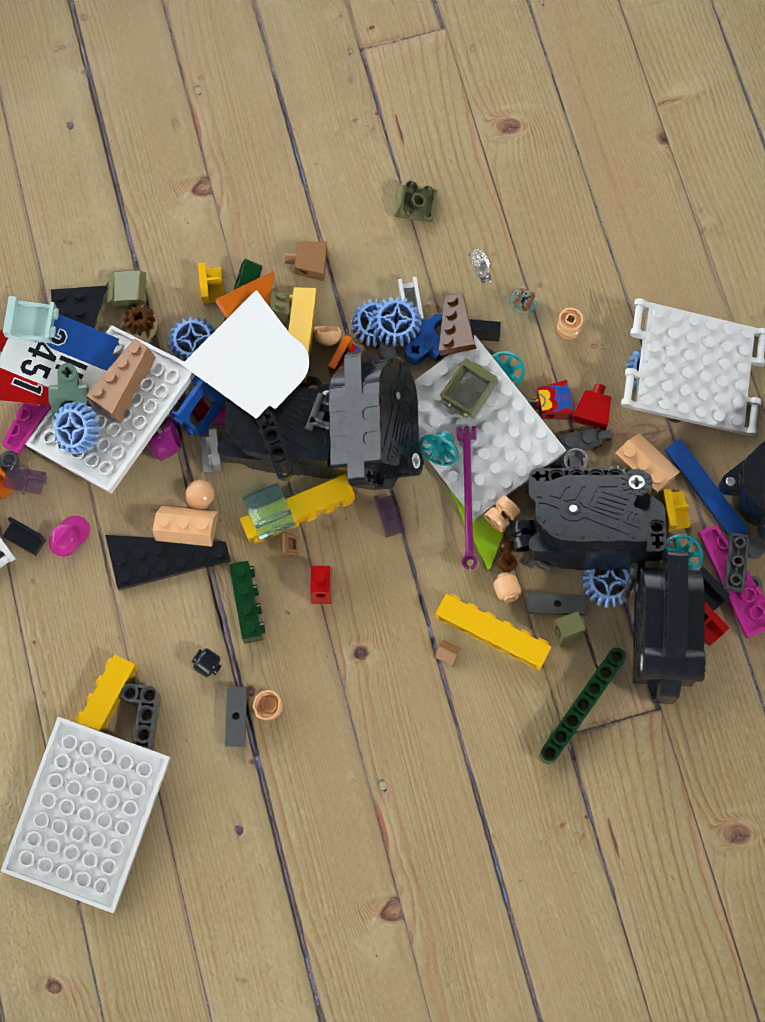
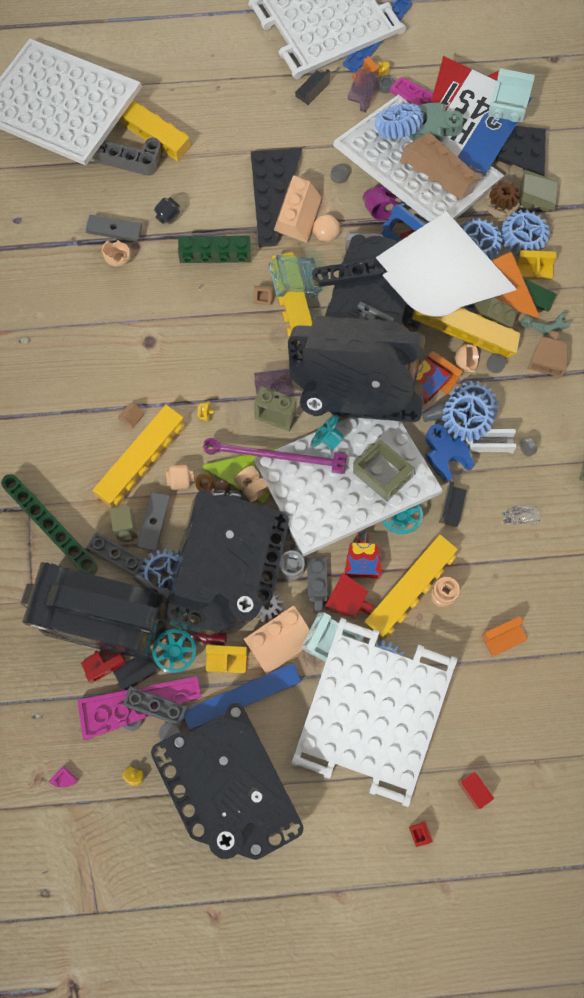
camera: 95 degrees right, 0 degrees up
(69, 535) = (308, 121): dark pink piece -> none
(131, 491) = (339, 174): none -> flat silver tile
(163, 304) = (529, 226): none -> light blue gear
(280, 266) = (528, 322): none -> sand green piece
(321, 584) = (219, 313): red torso -> none
(325, 308) = (496, 363): none -> dark grey tile
(409, 268) = (528, 446): none -> flat silver tile
(420, 503) = (275, 411): none -> olive window
(429, 579) = (204, 411): none -> yellow piece
(455, 327) = (454, 473): wing -> none
(523, 301) = (478, 551): clear light blue head -> none
(570, 354) = (412, 584): none -> yellow brick
(593, 646) = (124, 560): none -> dark grey tile
(596, 269) = (504, 636): none -> orange panel
(637, 423) = (321, 636): none -> light aqua panel
(740, 276) = (476, 790): none -> red piece

